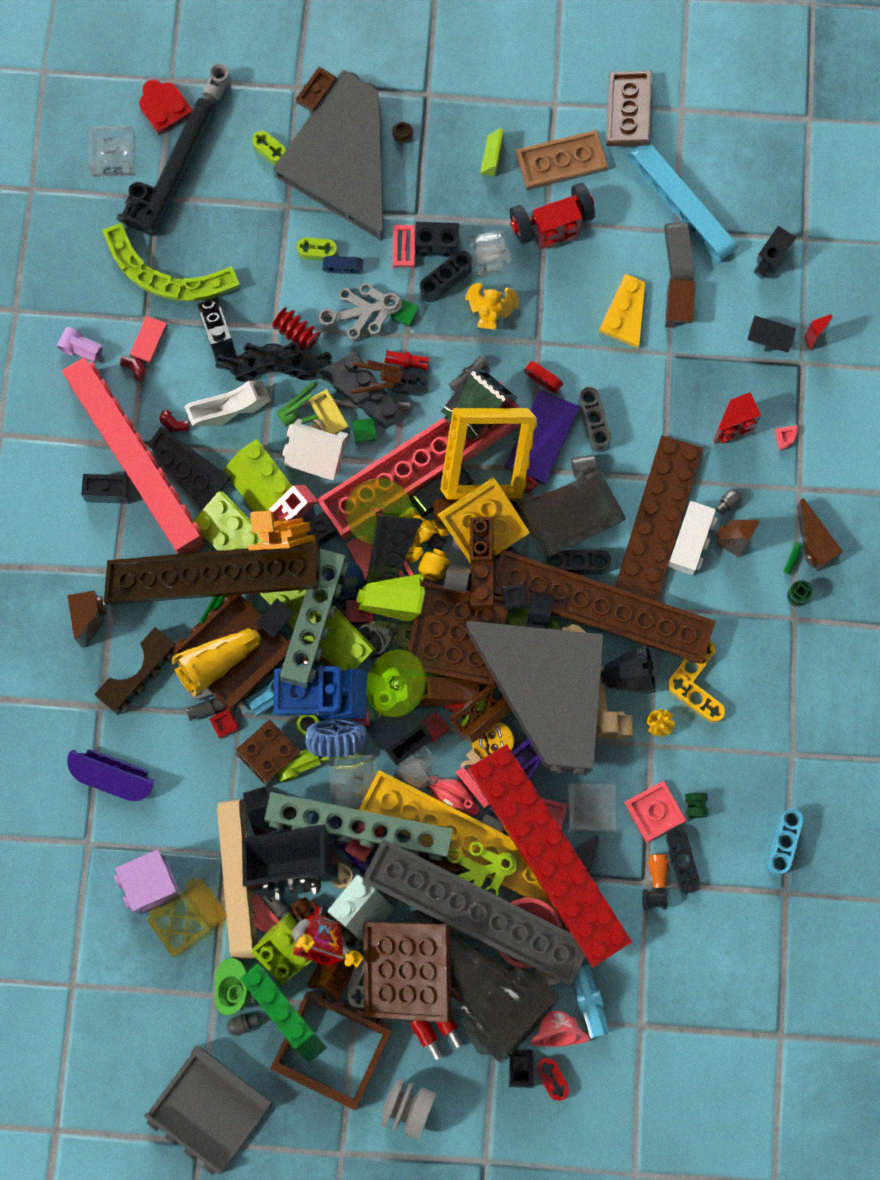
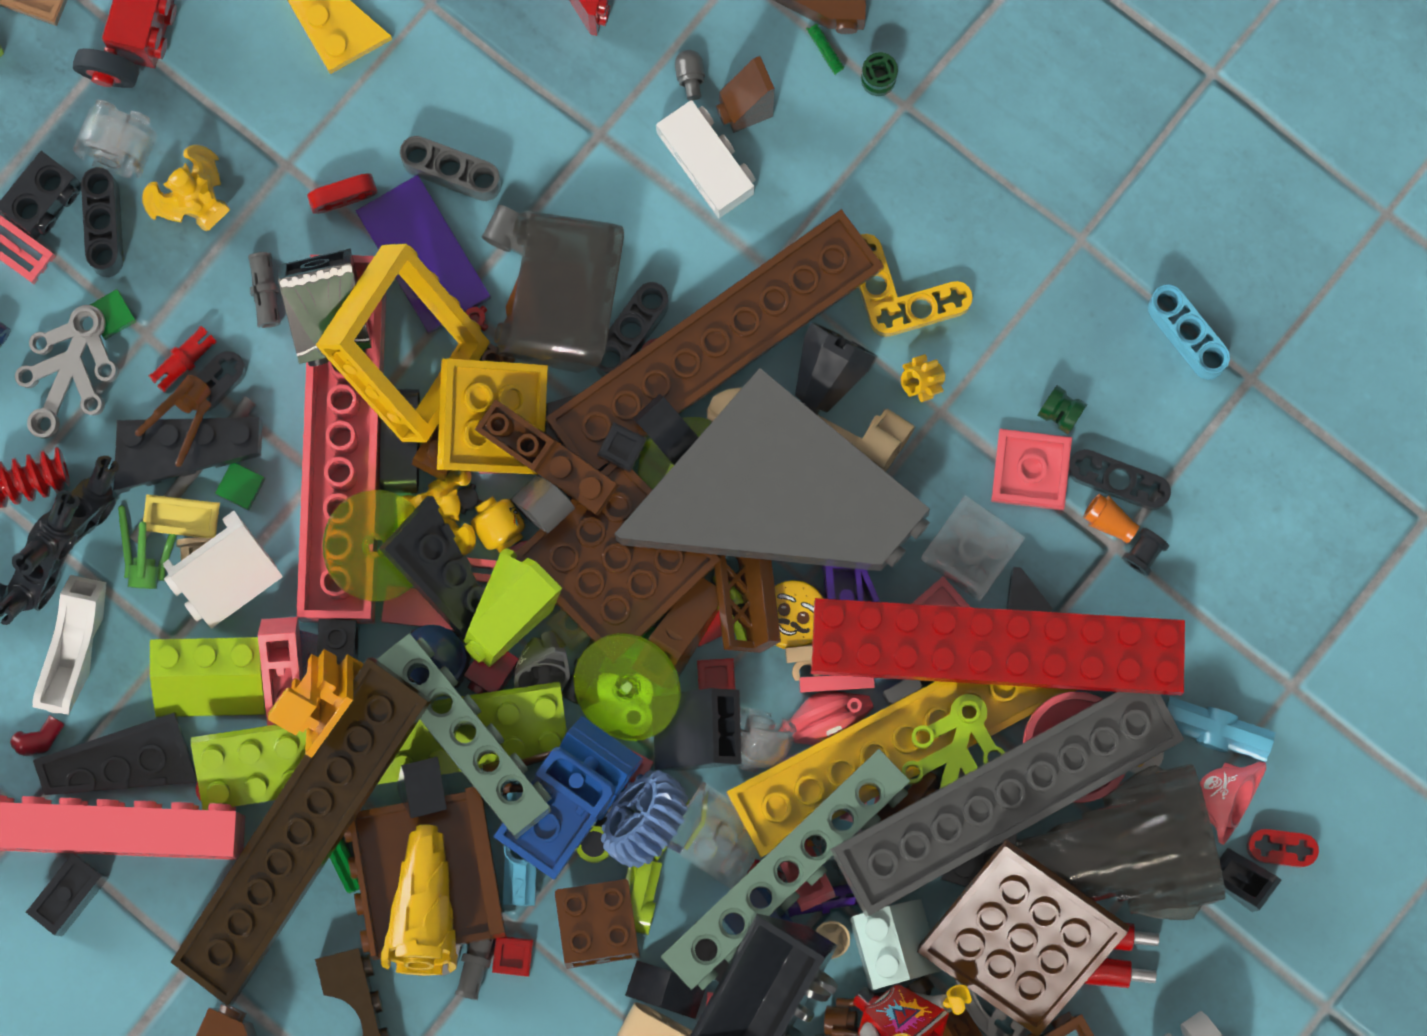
camera: 55 degrees left, 5 degrees up
(659, 517) = (646, 182): reddish brown plate -> none

